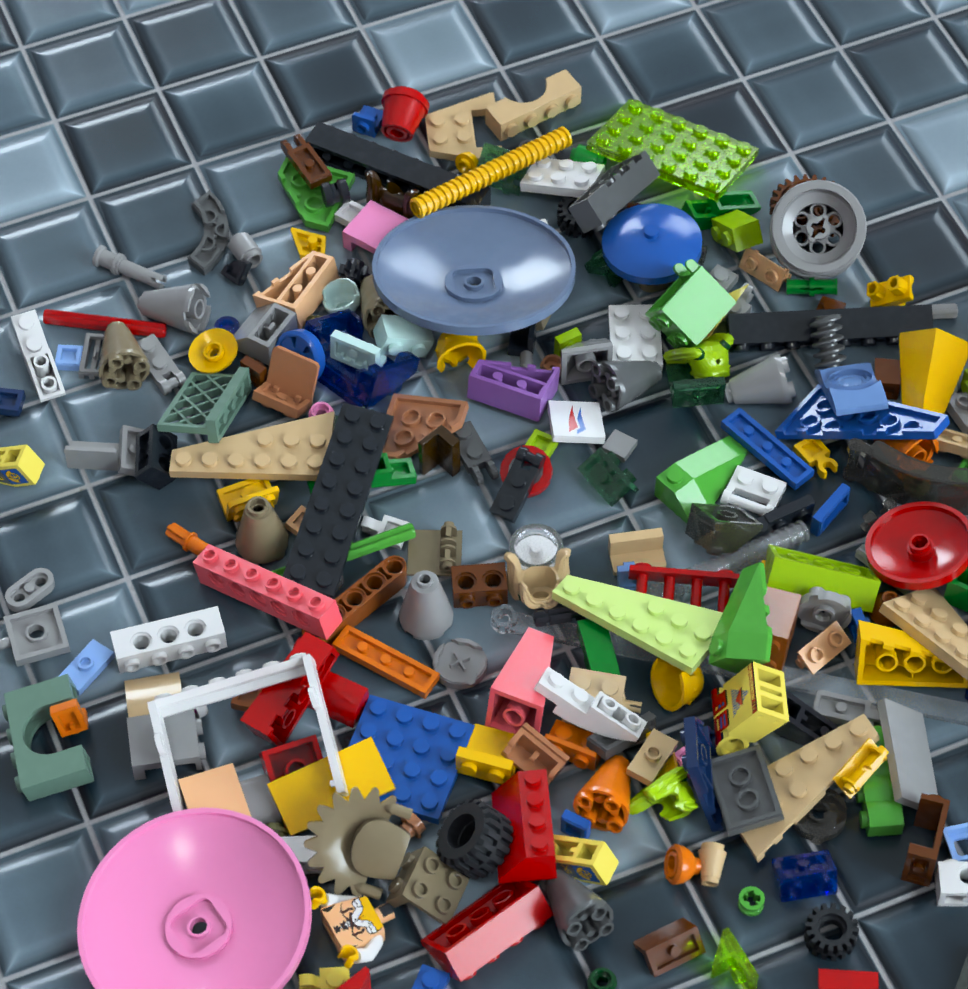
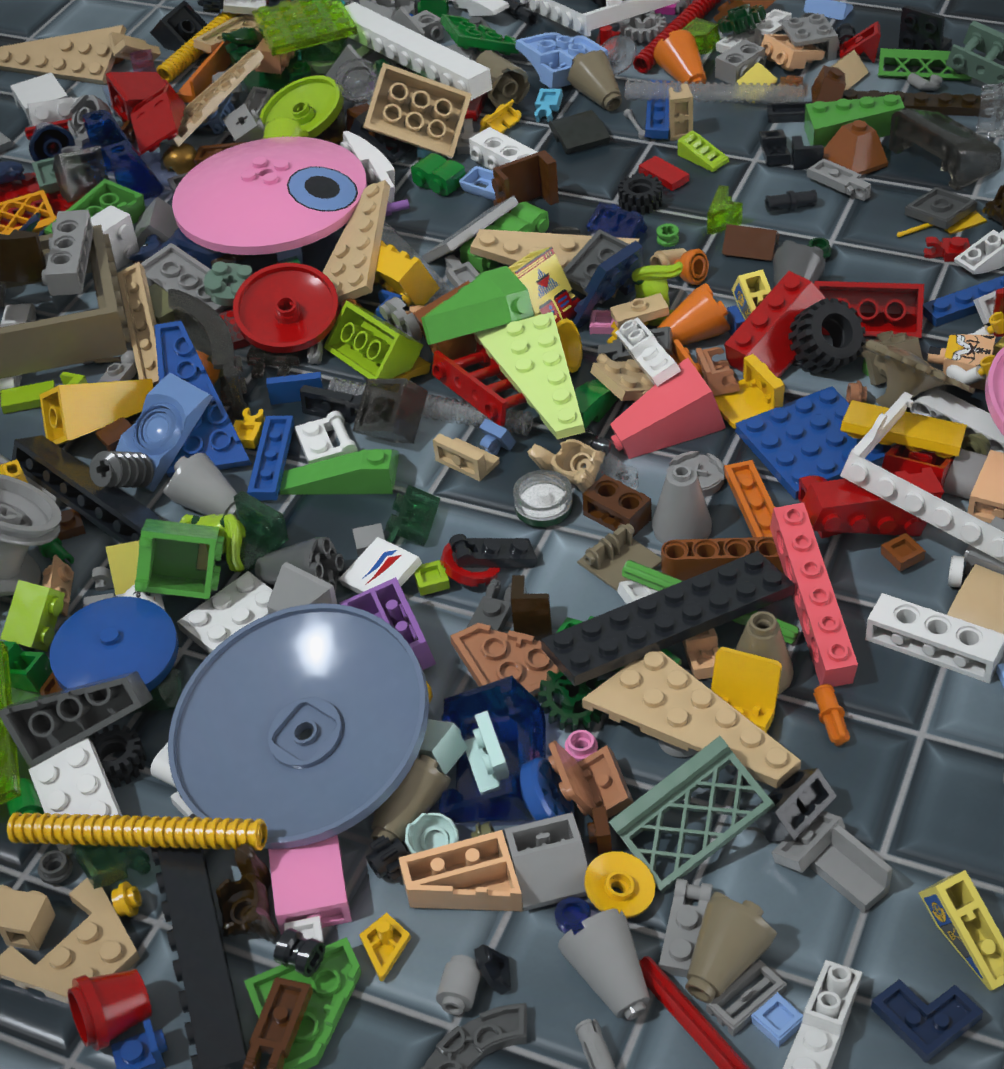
camera: 130 degrees left, 10 degrees down
(860, 767) = (526, 220): yellow hinge -> none

